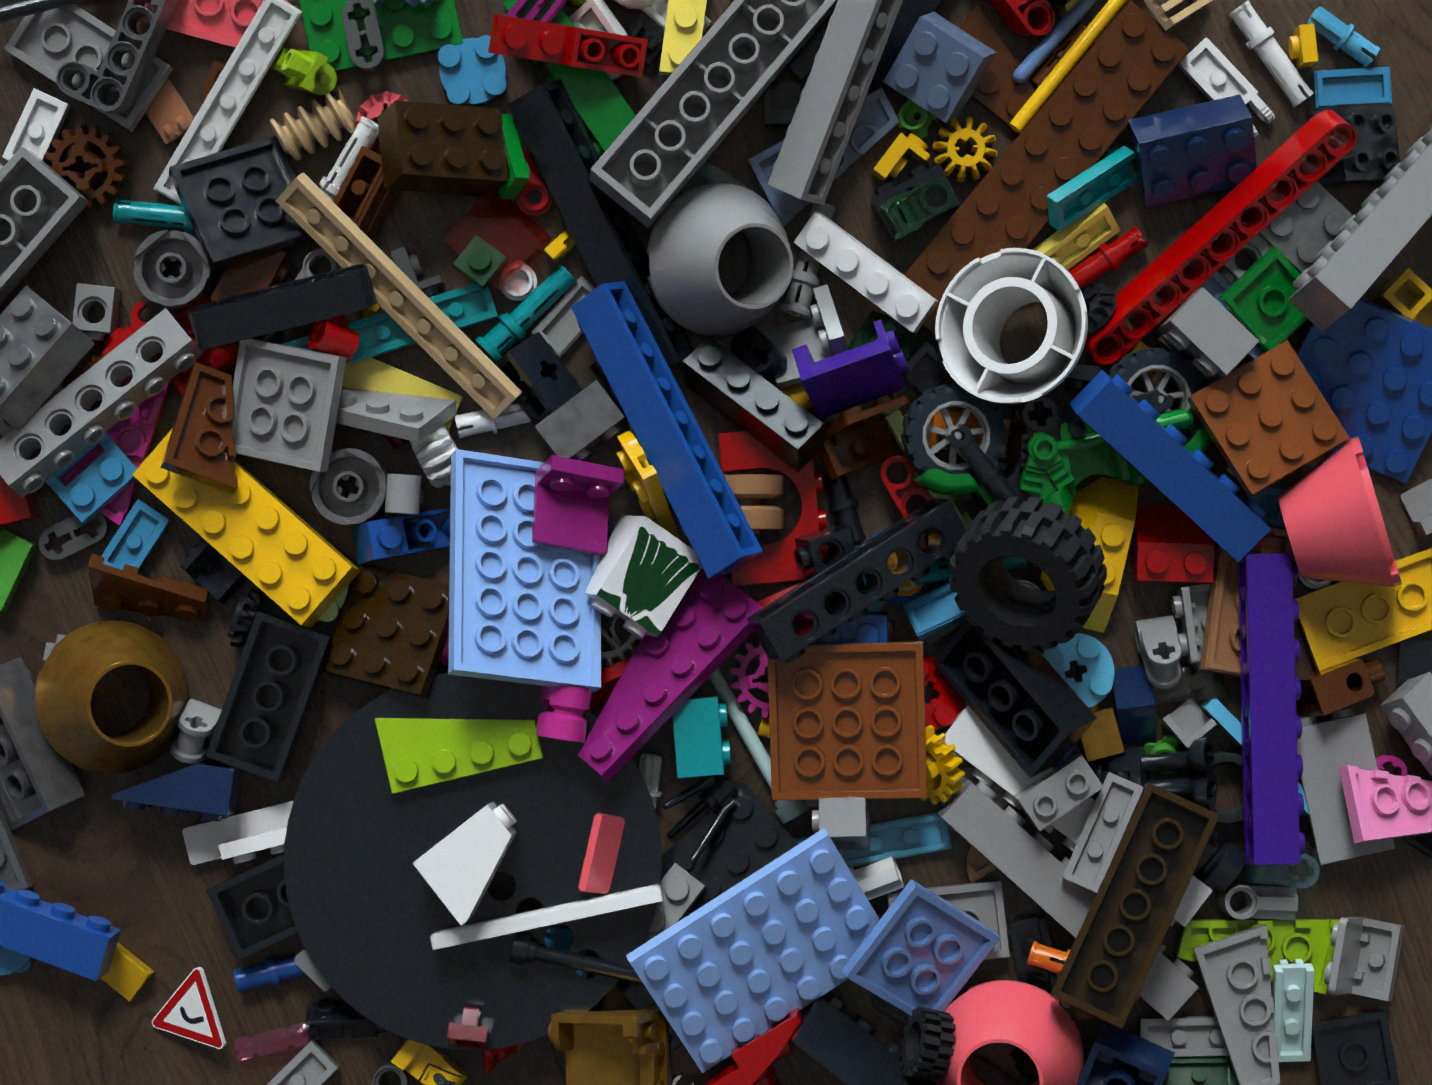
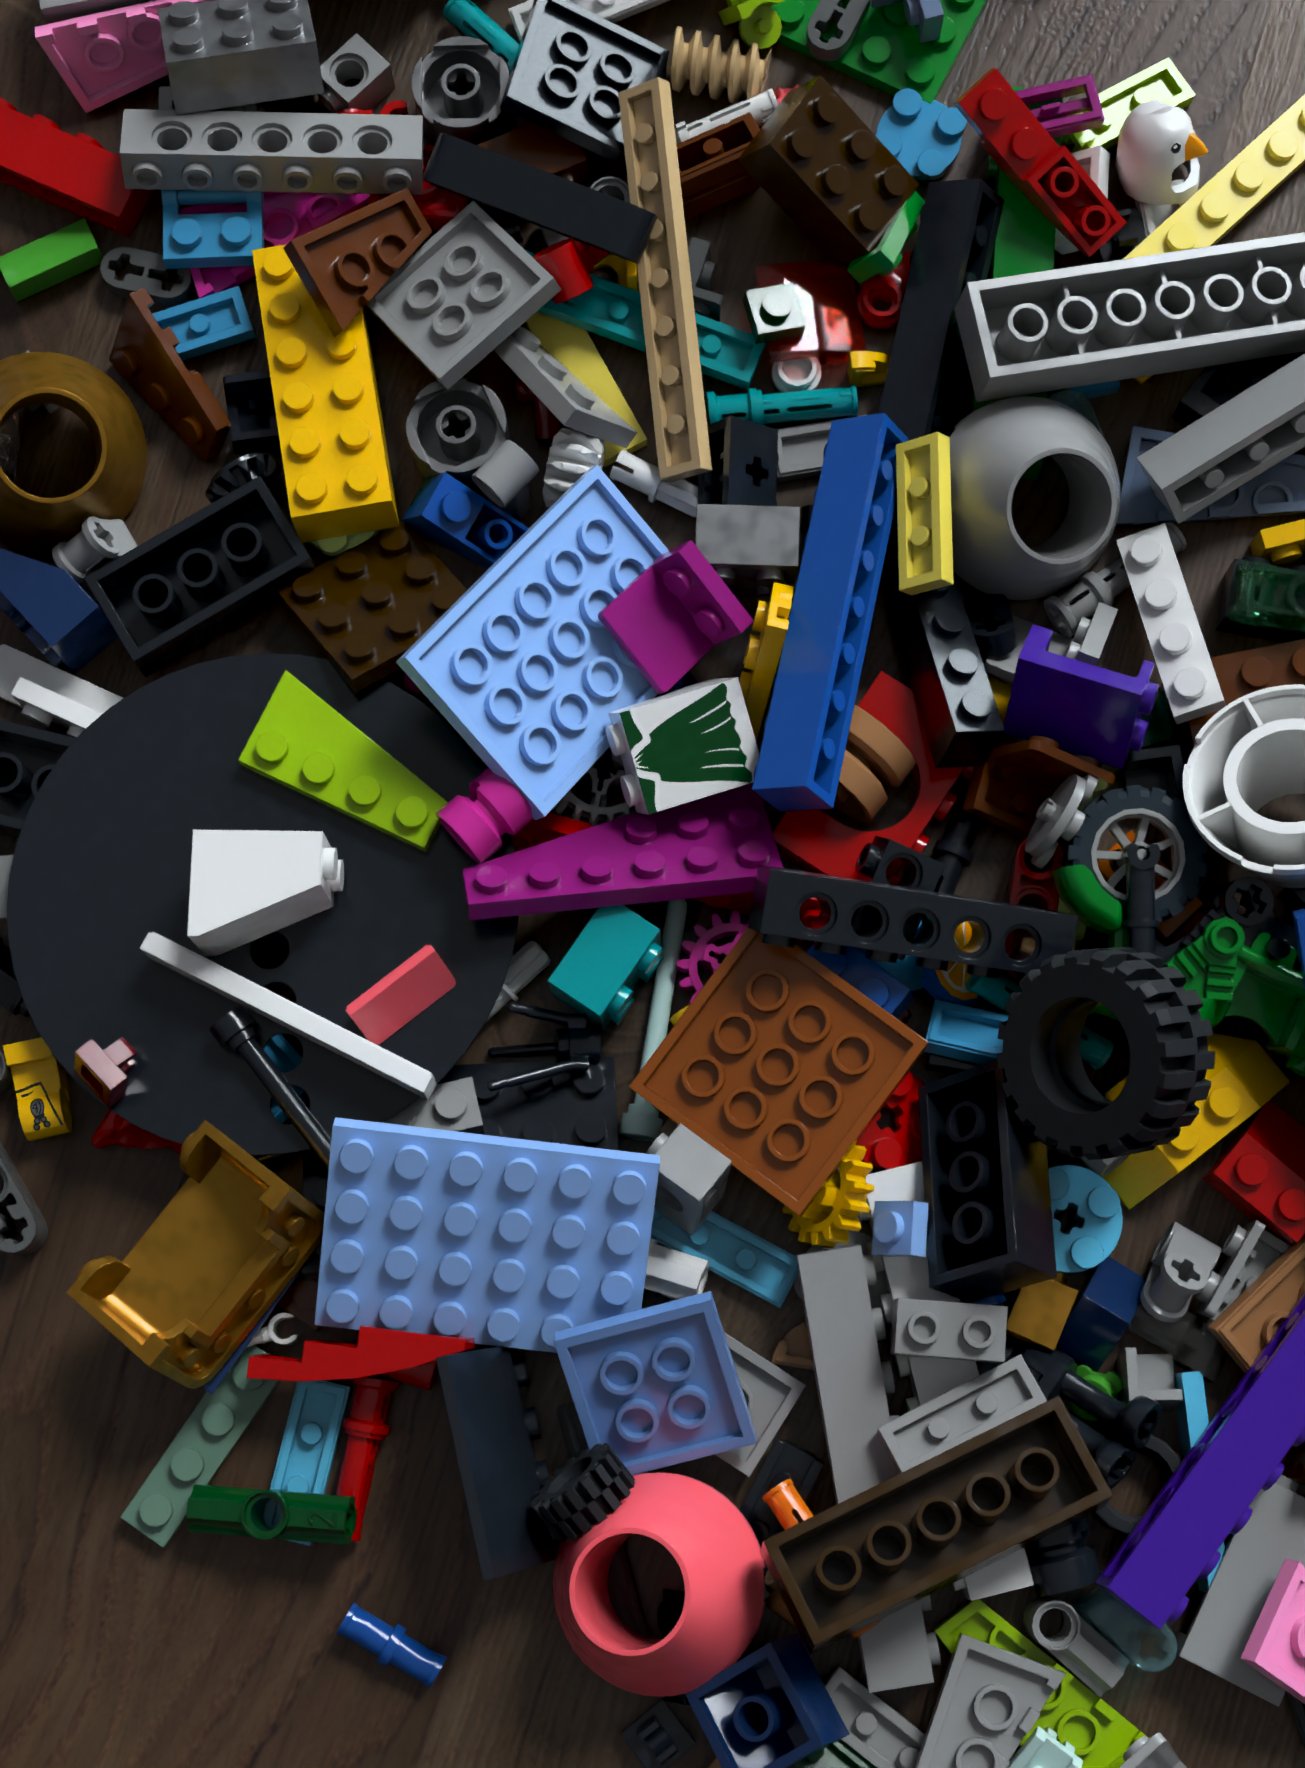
camera: 45 degrees right, 10 degrees down
(673, 326) = (924, 514): none -> light yellow plate
(892, 448) = (1059, 818): none -> light grey piece
(987, 755) = (900, 1228): none -> light blue plate

